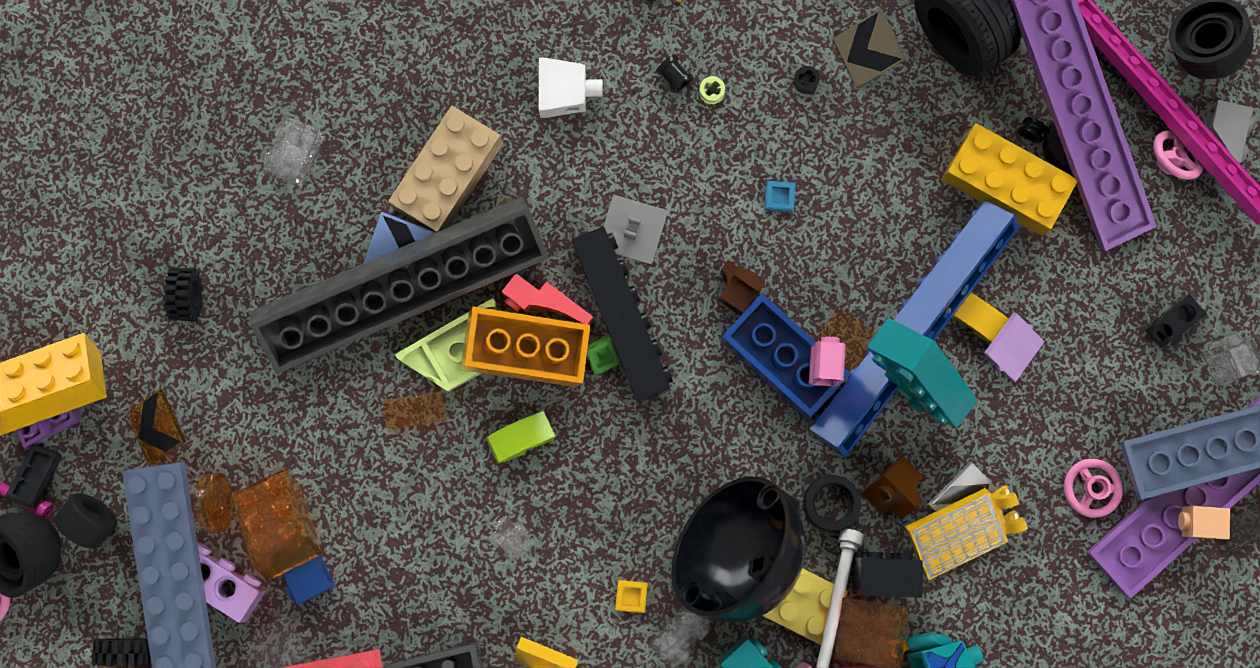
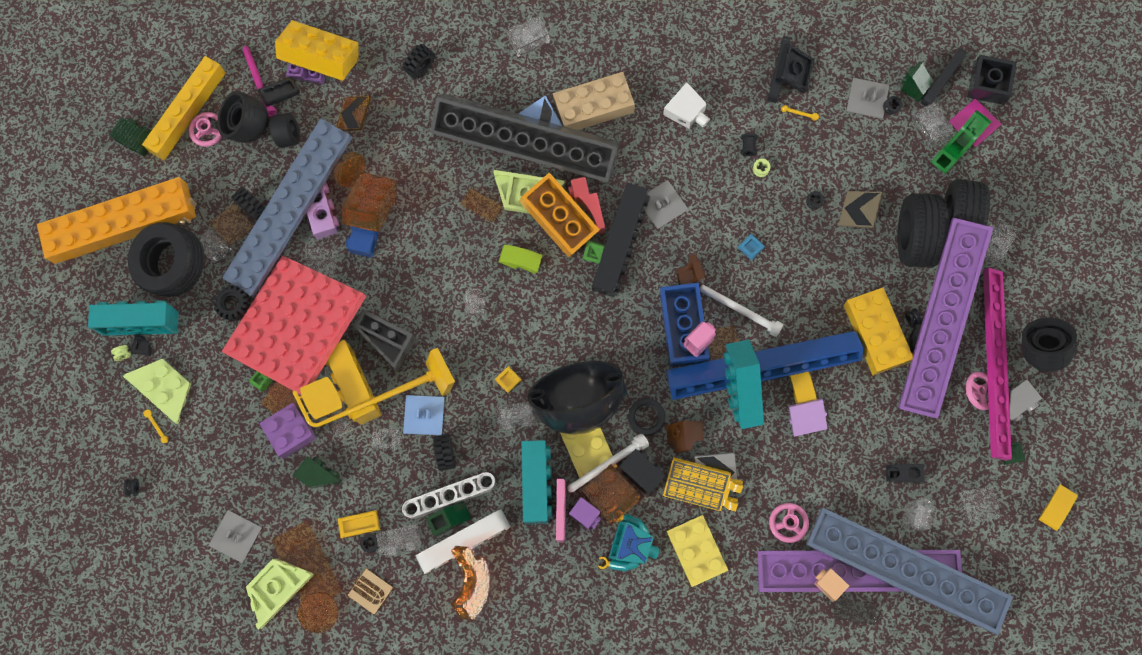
camera: 45 degrees right, 5 degrees down
(886, 272) = (773, 327): none -> white piece
(1020, 610) = (697, 551): none -> light yellow plate

